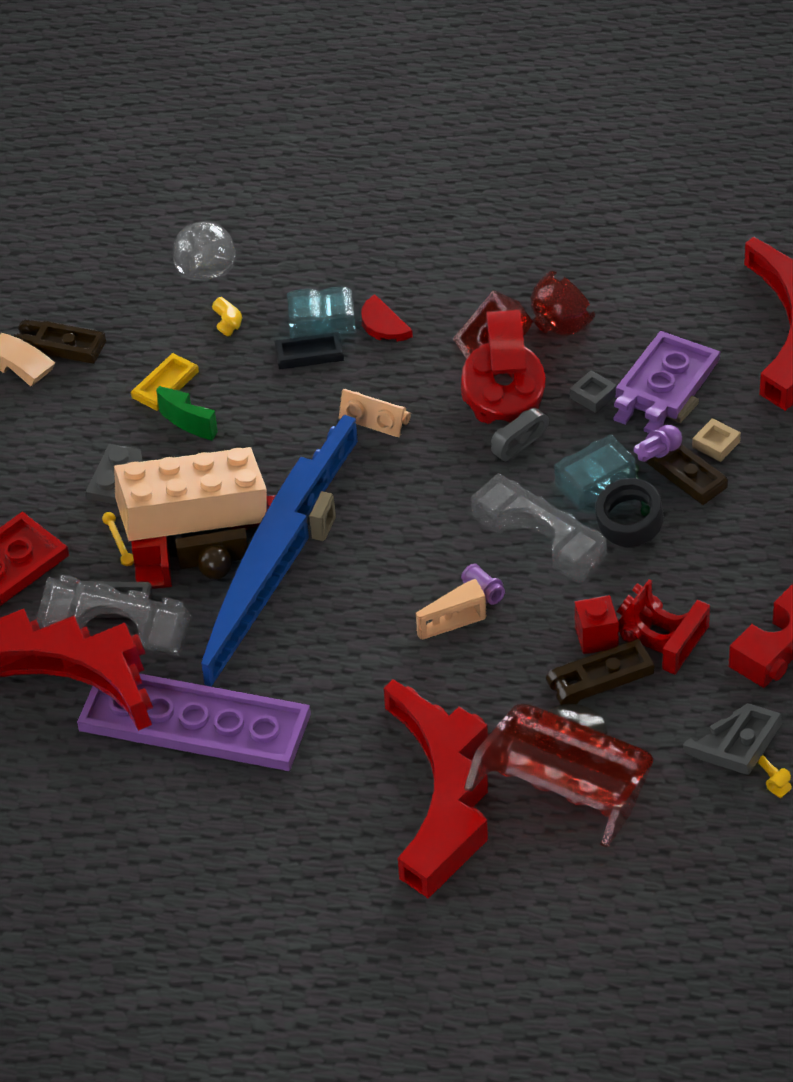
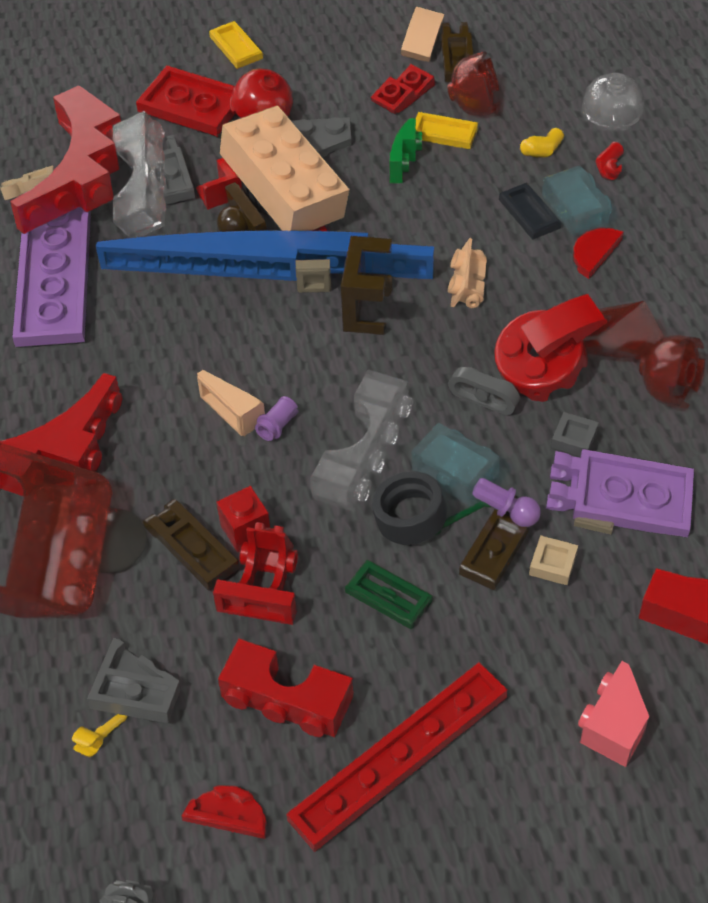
camera: 70 degrees right, 5 degrees up
(51, 497) = (260, 91): none -> red cylinder
(58, 713) = (16, 187): none -> tan plate
(88, 395) = (401, 92): none -> red slope
(129, 335) = (475, 85): none -> clear red cylinder
(285, 282) = (607, 161): none -> red arm
(364, 479) = (361, 286): none -> dark brown panel
(709, 557) = (415, 611): none -> dark green tile

